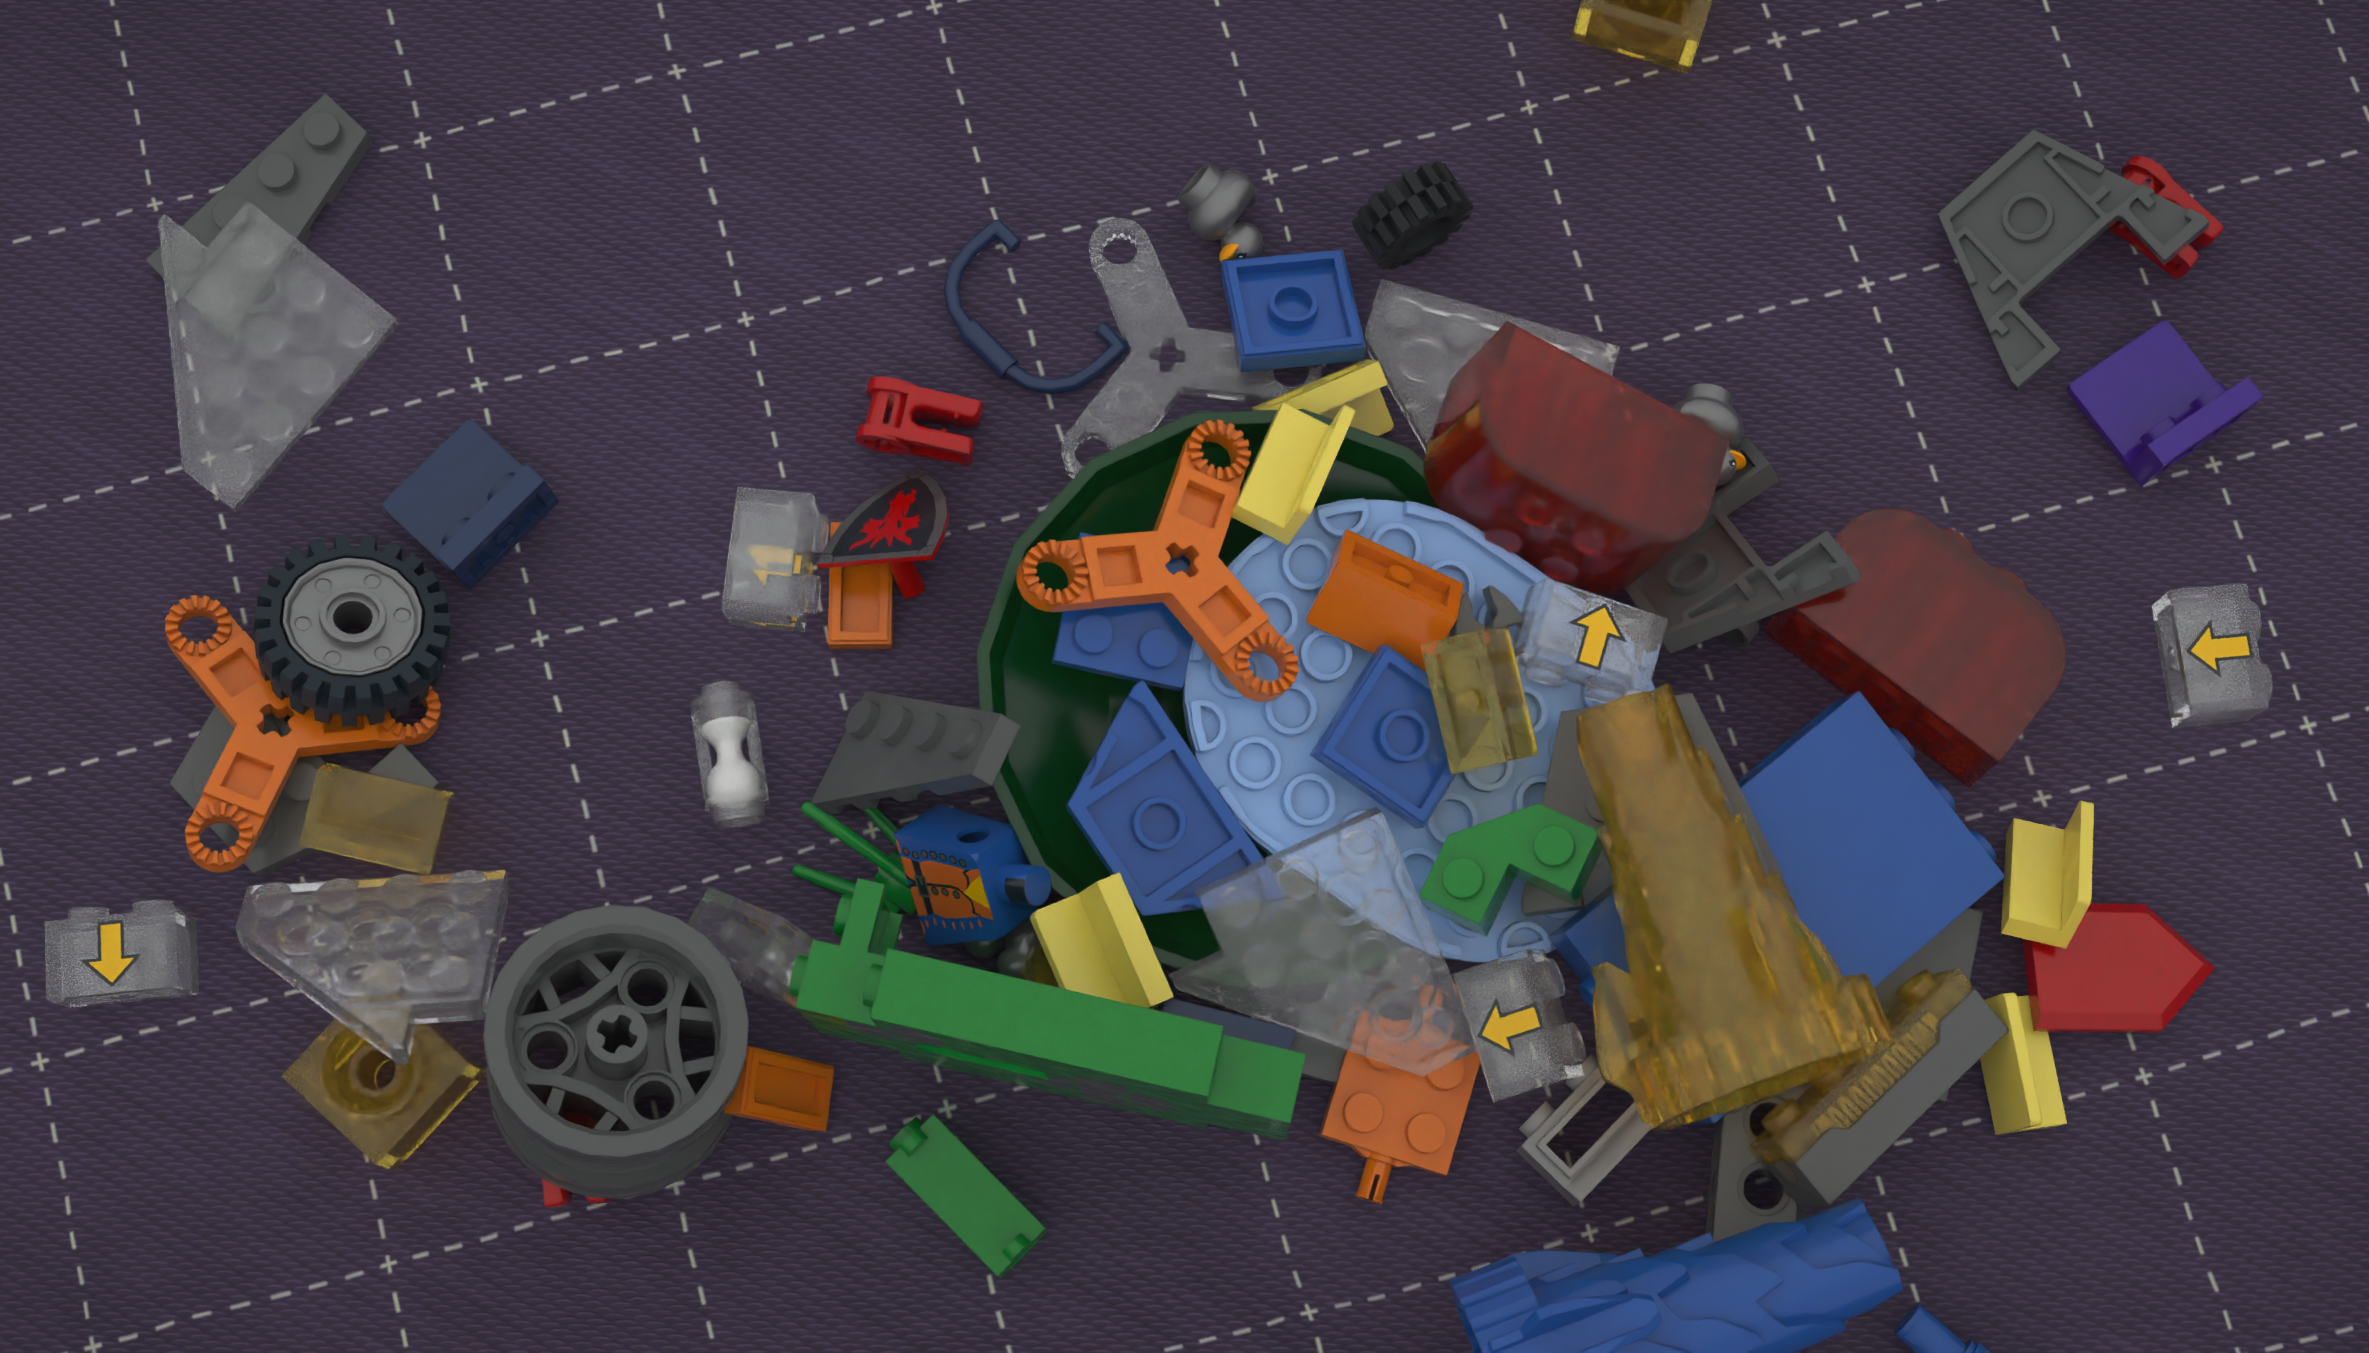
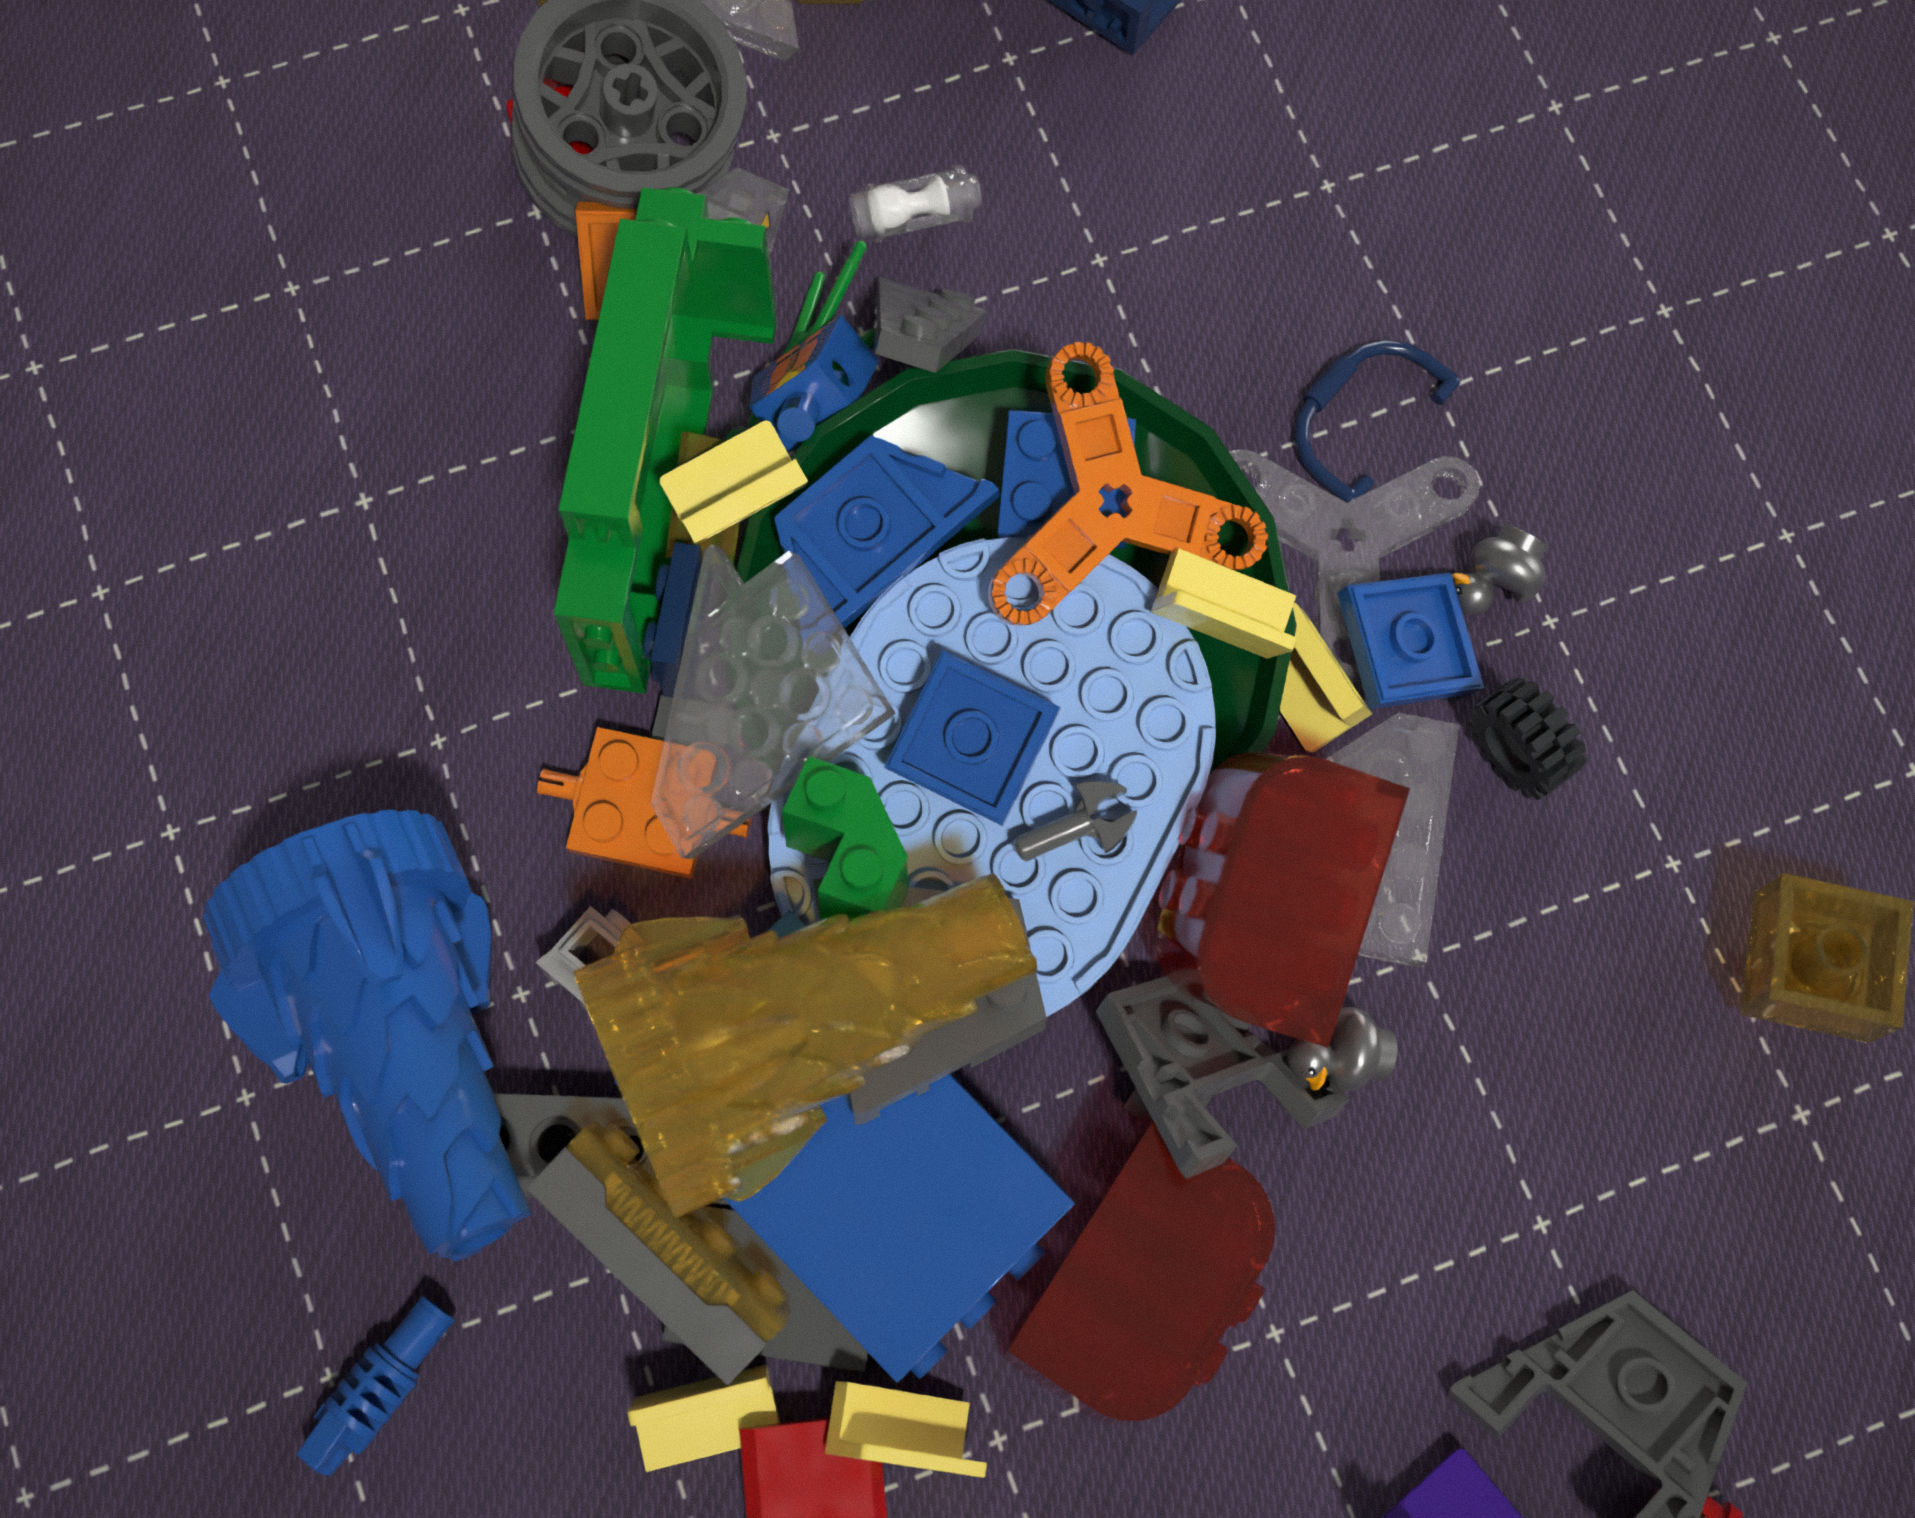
camera: 80 degrees right, 5 degrees down
(773, 559) = (1099, 218): clear brick -> none
(860, 606) = (1087, 300): orange tile -> none
(893, 527) = (1136, 307): shield -> none
(912, 404) = (1251, 307): red piece -> none
(964, 1194) = (523, 431): green brick -> none
(1384, 599) = (1107, 709): orange panel -> none
(1479, 699) = (1014, 806): clear yellow panel -> none
(1520, 1024) = (706, 876): clear brick -> none
(1587, 641) = (1091, 914): clear brick -> none

